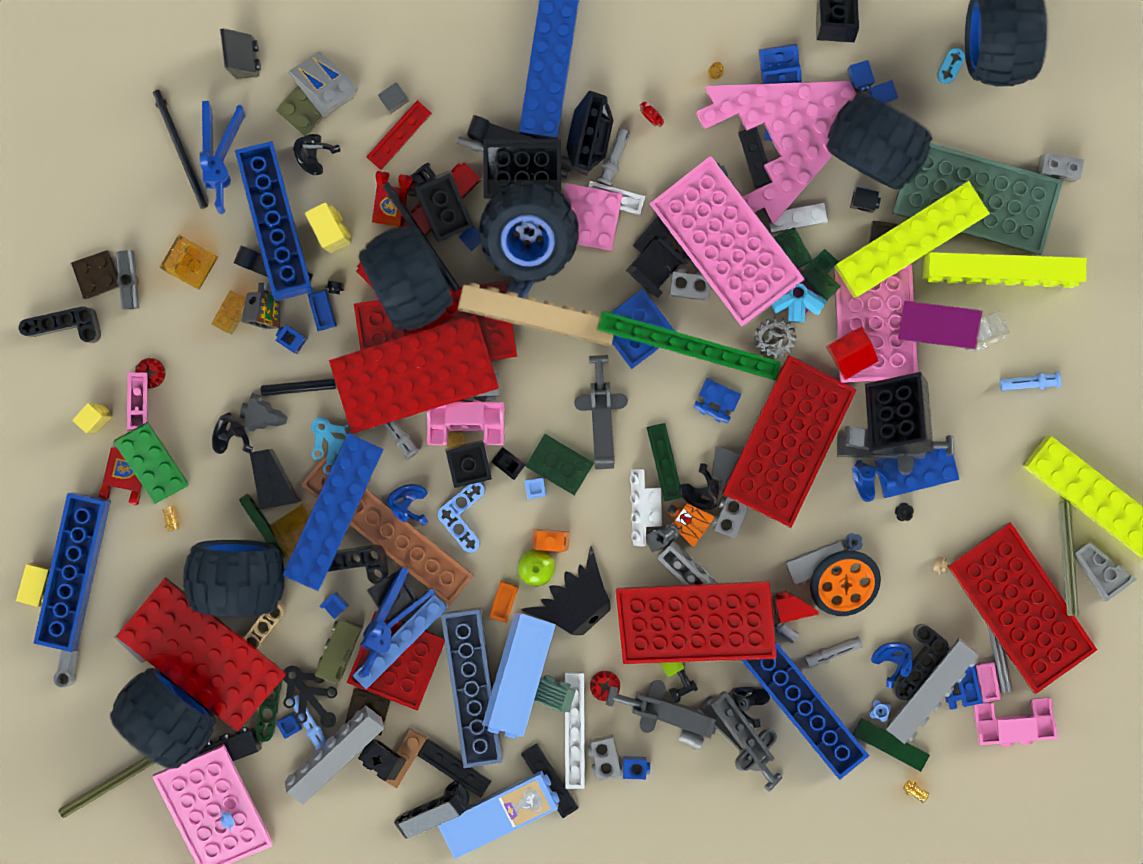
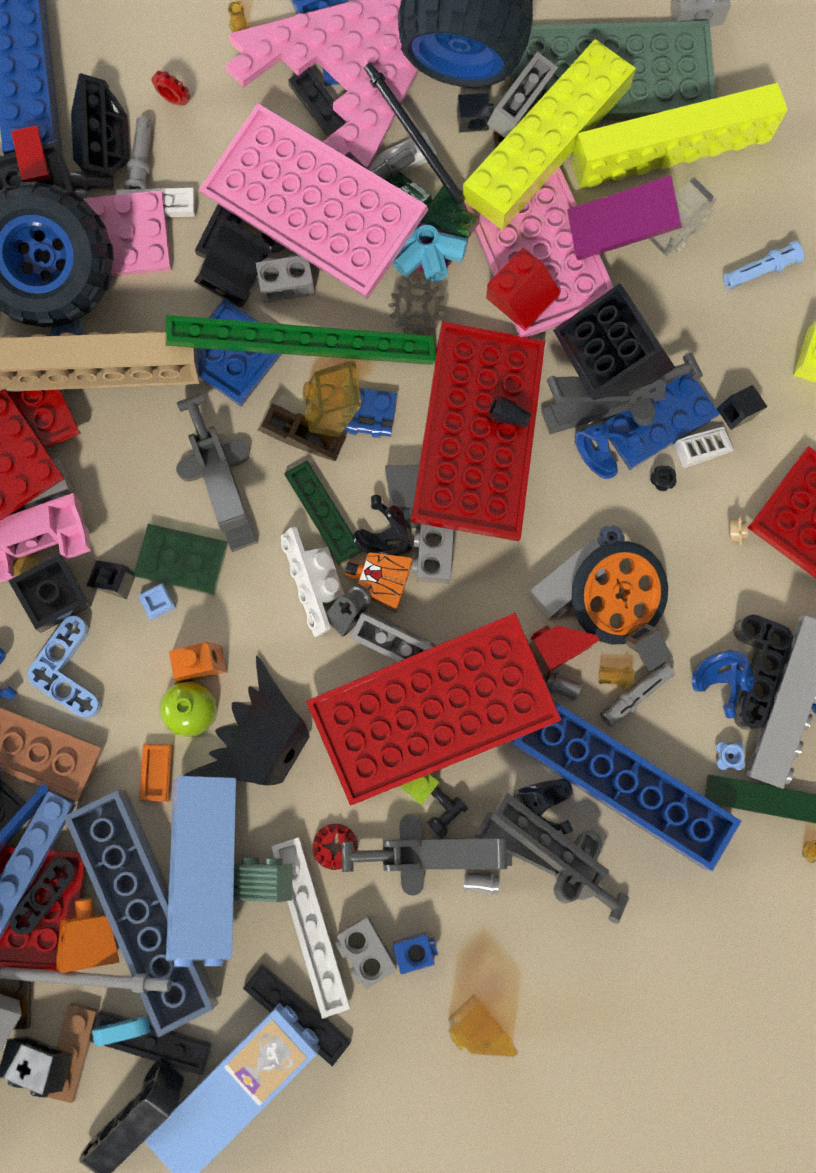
camera: 20 degrees left, 10 degrees down
(405, 671) = (36, 918): none -> black beam
(433, 694) = (85, 940): none -> orange torso
(440, 756) = (121, 1030): none -> medium azure beam
(462, 733) = (138, 983): none -> light grey bar
(539, 146) = (30, 154): none -> red tile
(660, 827) = (478, 1031): none -> clear yellow slope
(667, 402) = (294, 431): none -> dark brown slope
(696, 390) = (332, 398): none -> clear yellow slope
(789, 228) = (394, 165): none -> dark grey axle
(802, 160) = (378, 81): none -> black bar
(811, 438) = (507, 412): none -> black cone
(824, 636) = (616, 676): none -> clear yellow pin
(851, 624) = (649, 645): none -> dark grey panel
(902, 205) = (522, 94): none -> light grey brick
(925, 503) = (684, 452): none -> white slope
(975, 481) = (741, 407): none -> black brick

